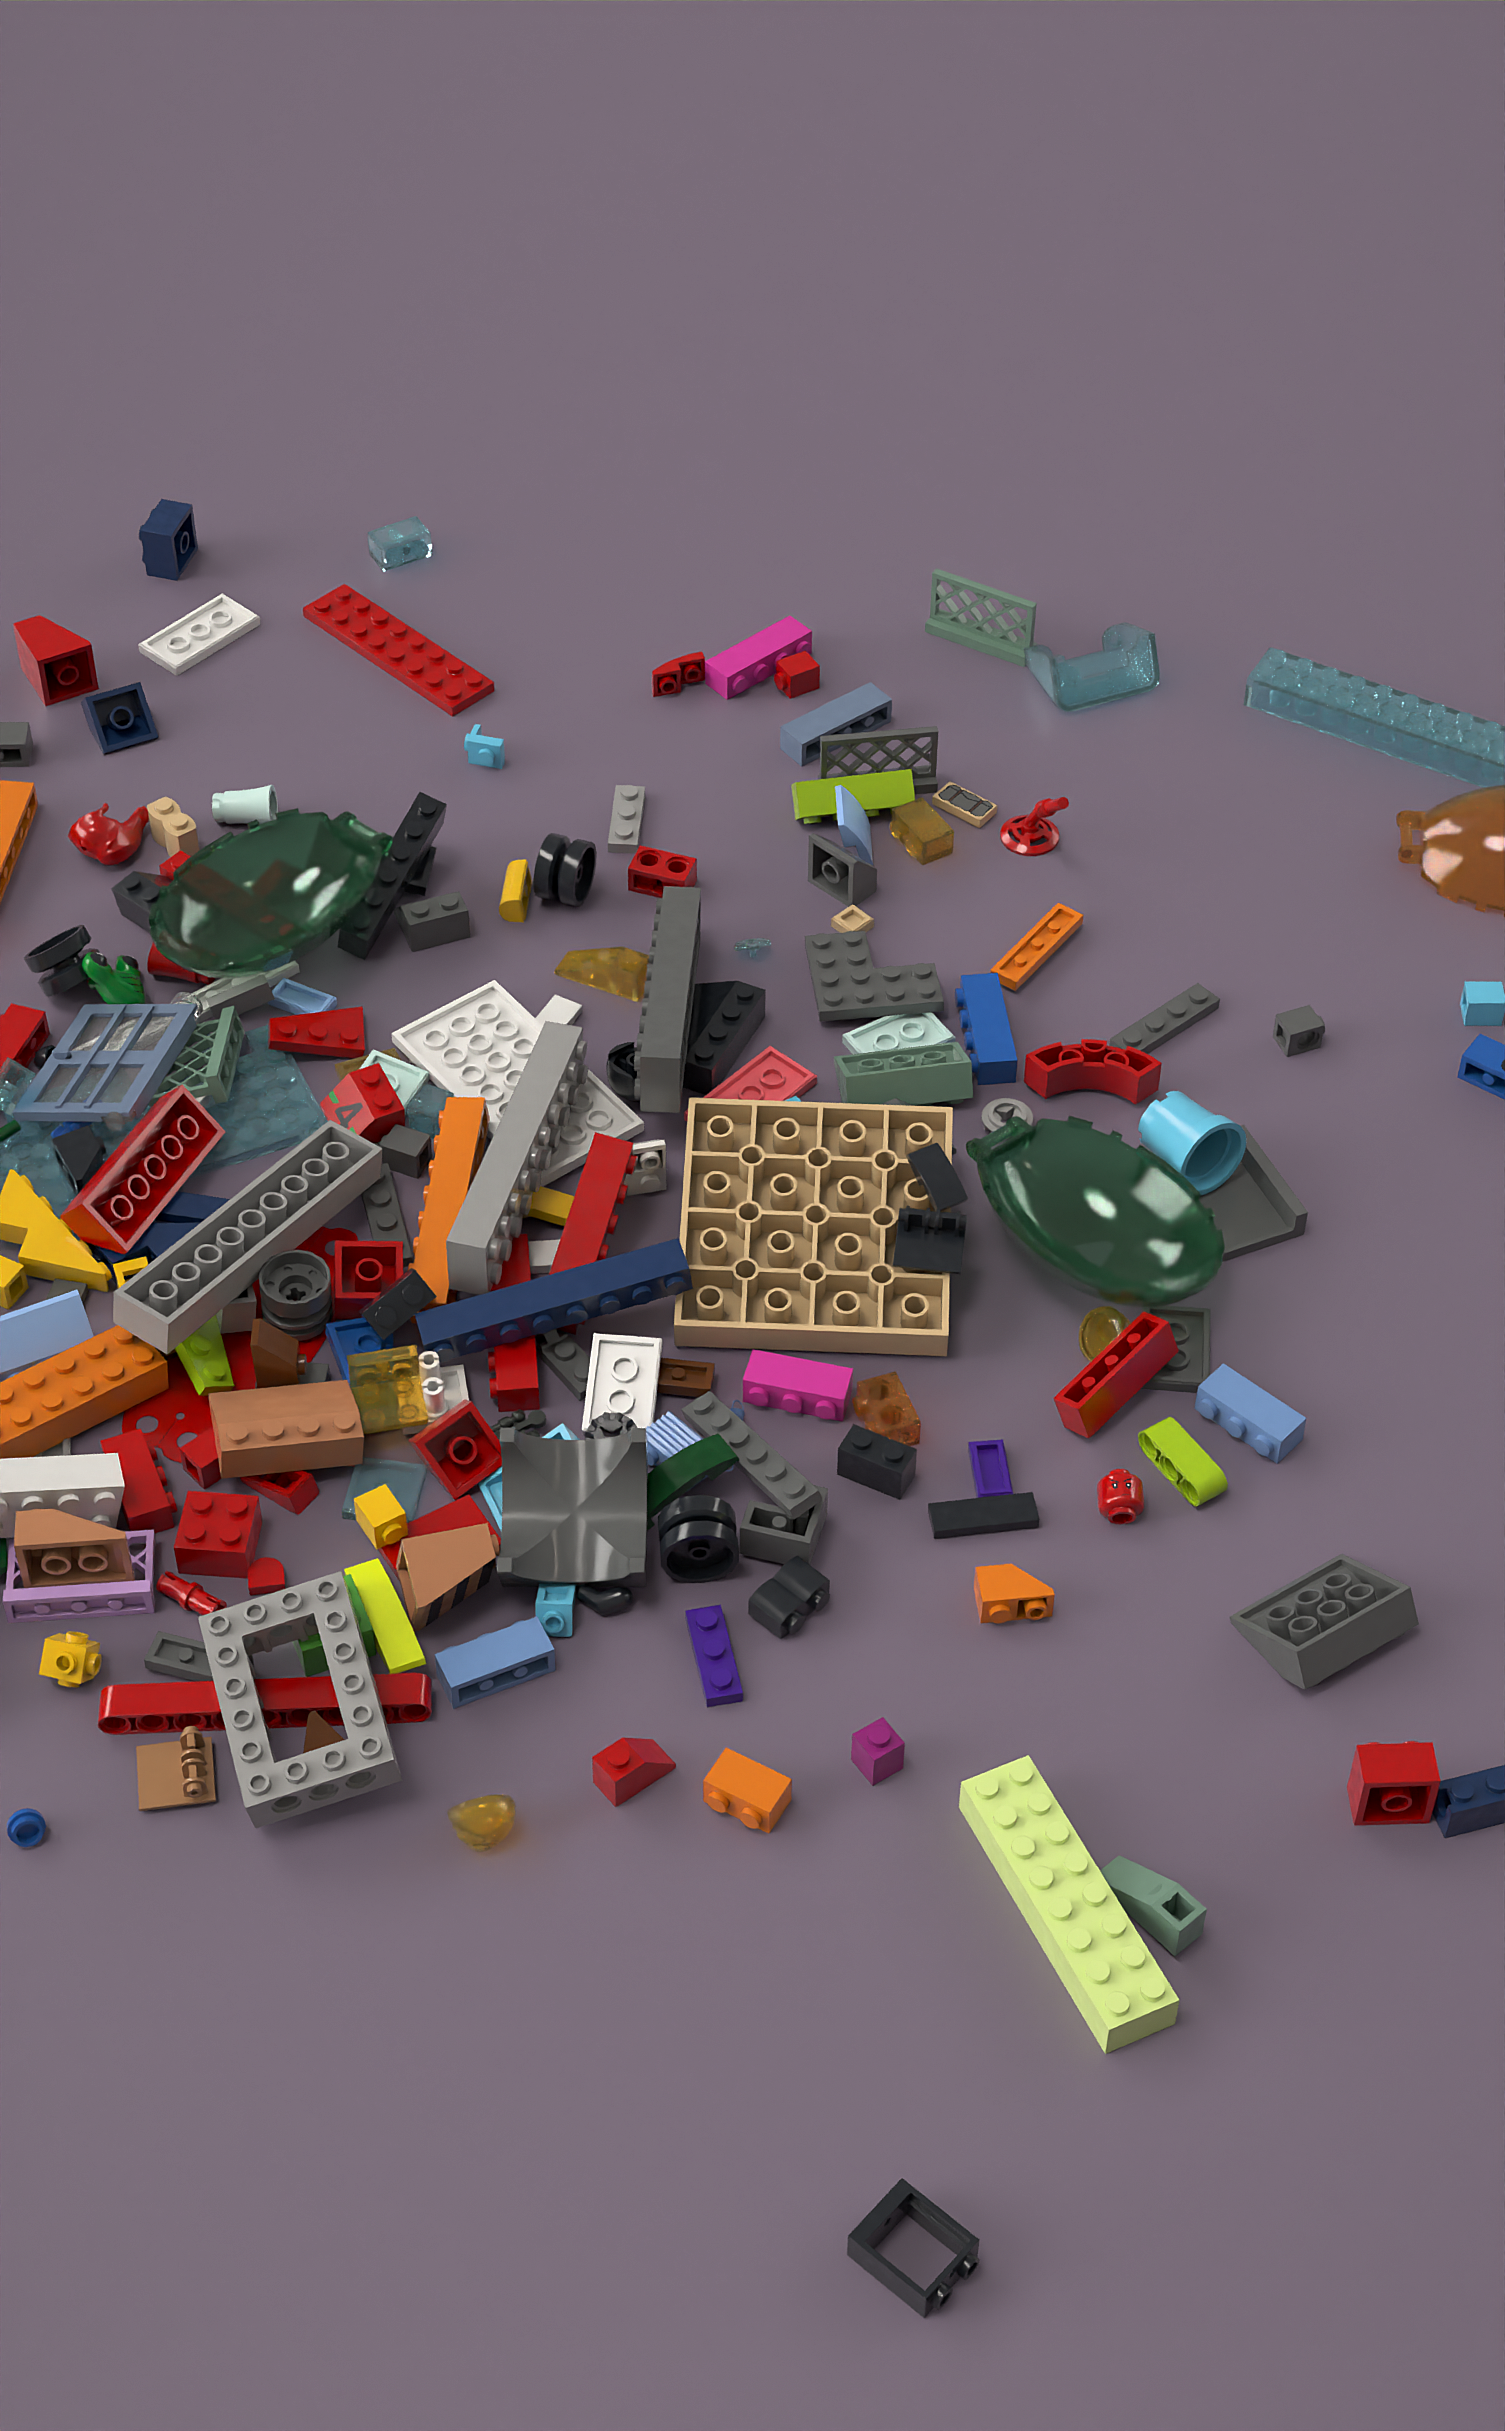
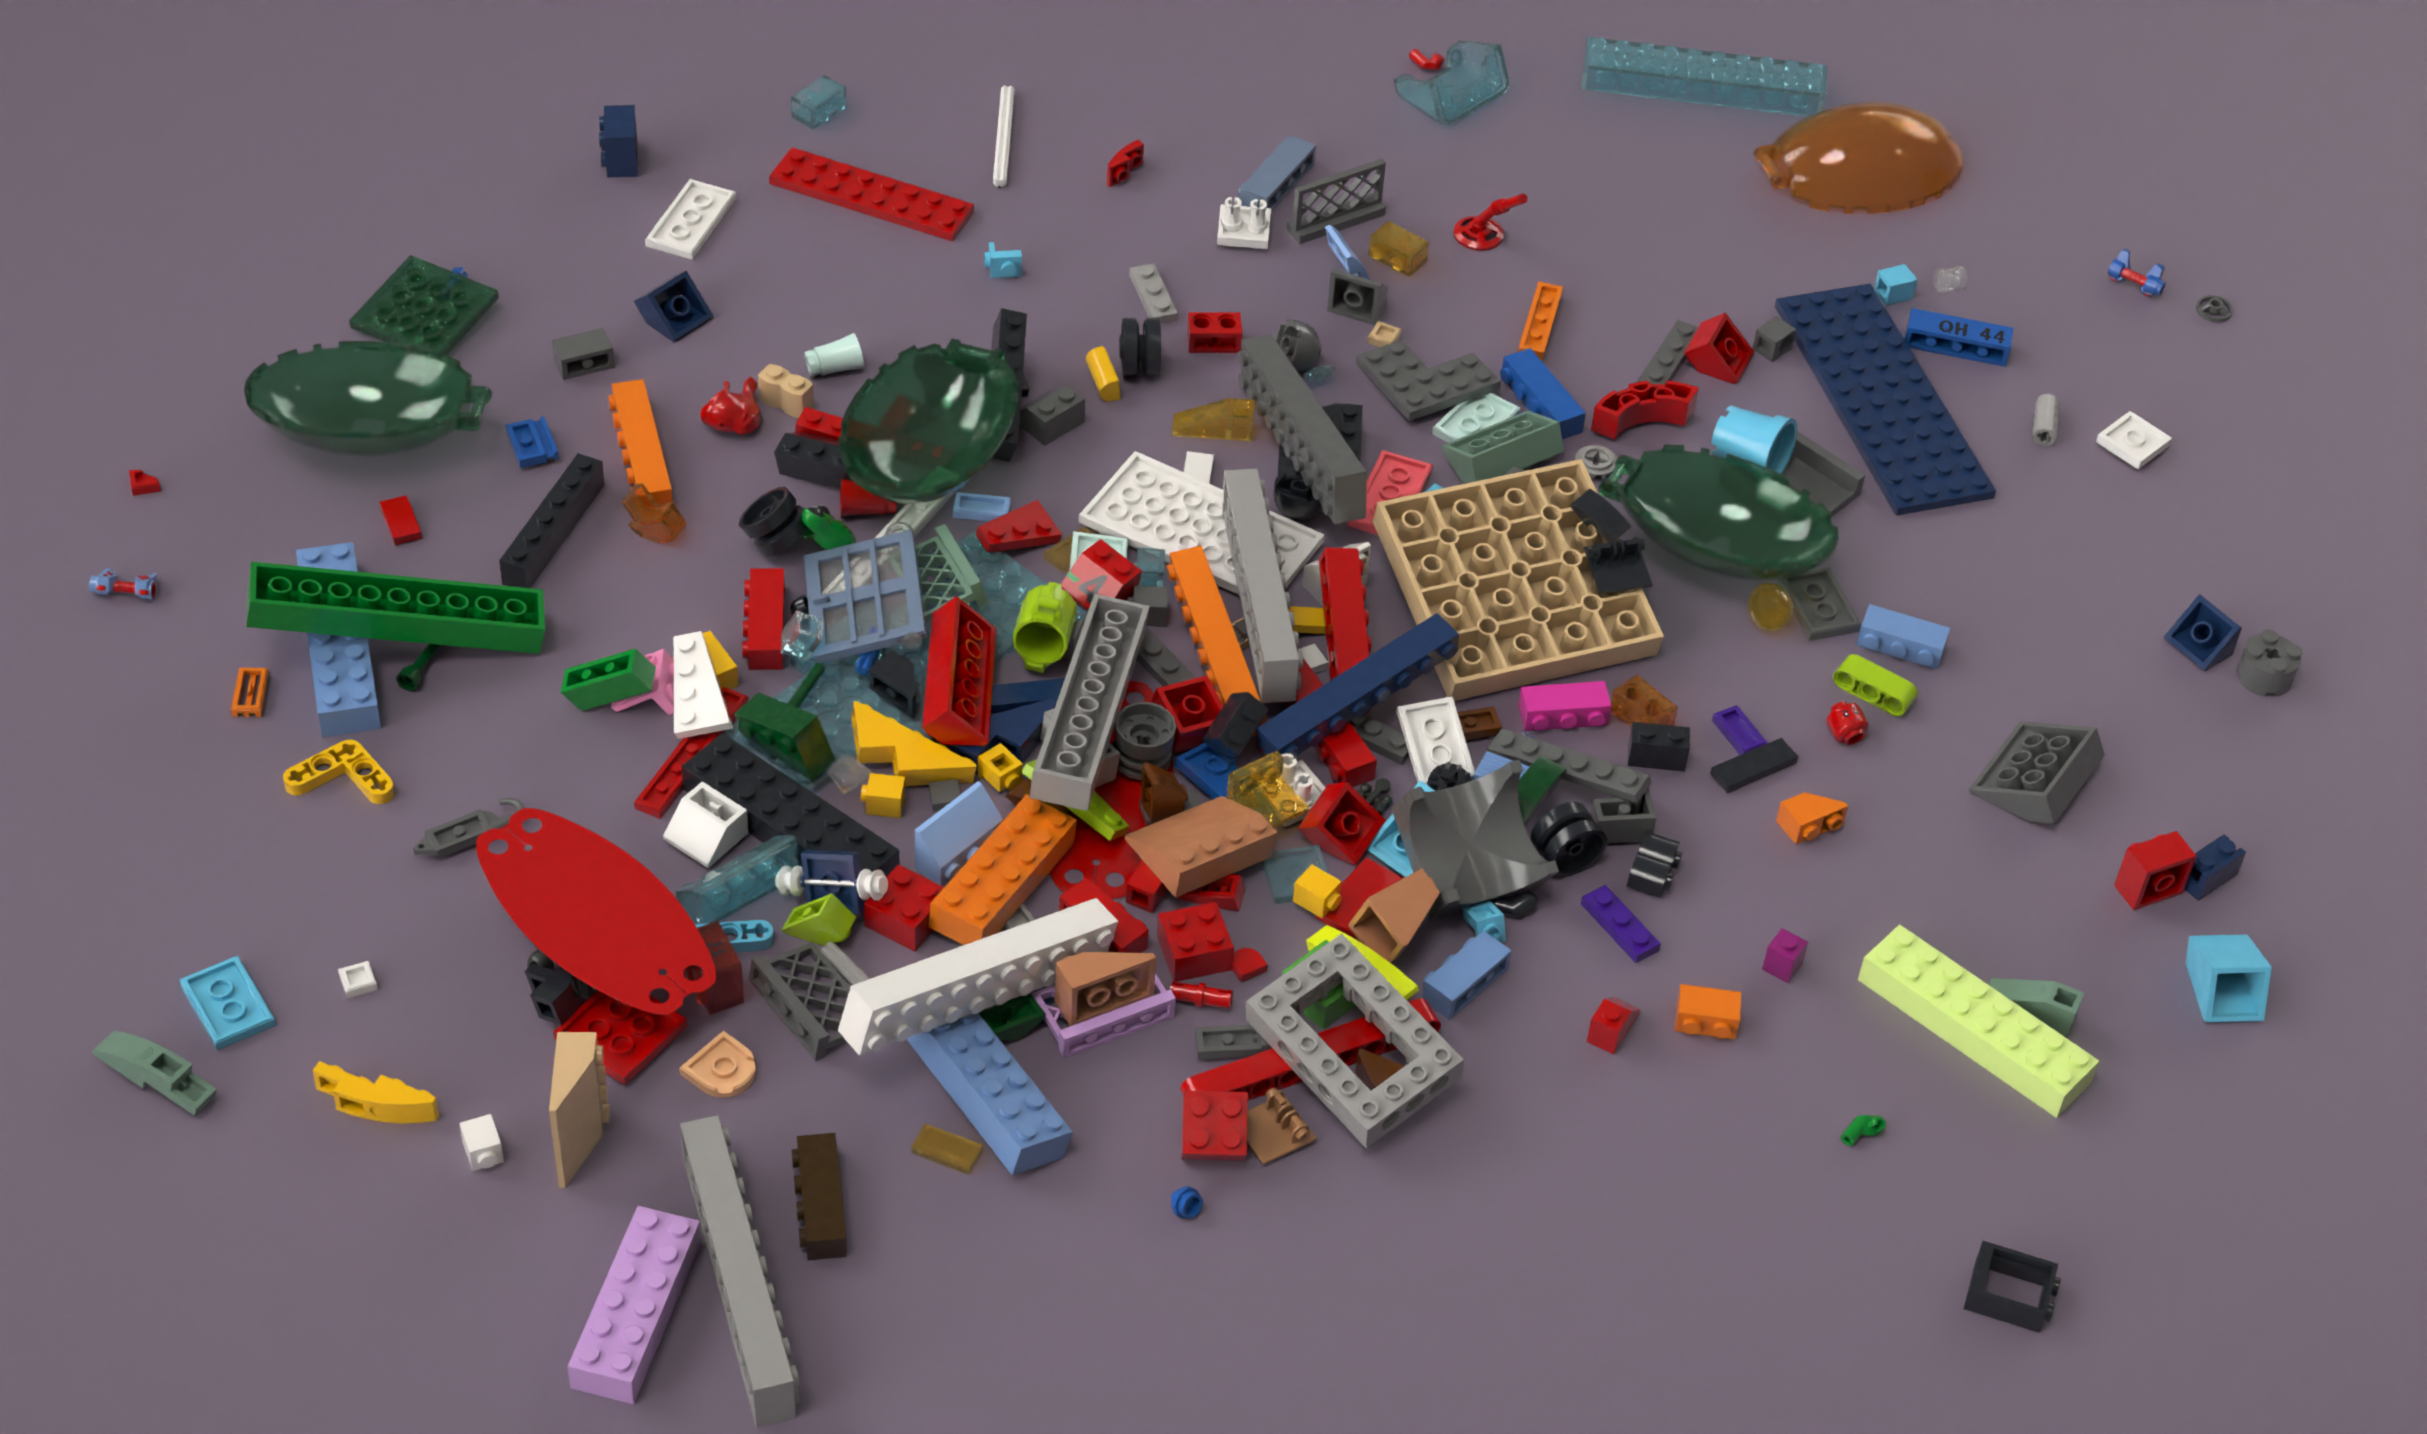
camera: 25 degrees left, 0 degrees up
(55, 660) = (588, 268): red slope -> none
(70, 1658) = (1133, 1061): yellow brick -> none
(99, 1748) = (1214, 1125): none -> red brick
(243, 996) = (937, 516): light grey tile -> none
(263, 1137) = (1044, 626): none -> lime container
(483, 1820) = (1532, 1090): clear yellow hat -> none
(571, 619) = (1003, 136): none -> white axle
(741, 910) = (1299, 344): none -> dark grey cylinder
(756, 657) = (1181, 134): dark pink brick -> none
(766, 767) = (1244, 225): none -> white plate
(797, 674) = (1221, 141): red brick -> none
(853, 1987) = (1863, 1126): none -> green arm
(873, 791) = (1311, 238): lime brick -> none
(964, 804) = (1416, 219): tile -> none
(980, 634) = (1346, 76): sand green fence -> none
(1081, 640) = (1423, 62): none -> red arm
(1116, 1374) = (1798, 633): red brick -> none
(1225, 1028) = (1719, 349): none -> red slope
(1396, 1134) = (1885, 400): none -> dark blue plate
(1417, 1946) = (2228, 977): none -> medium azure slope

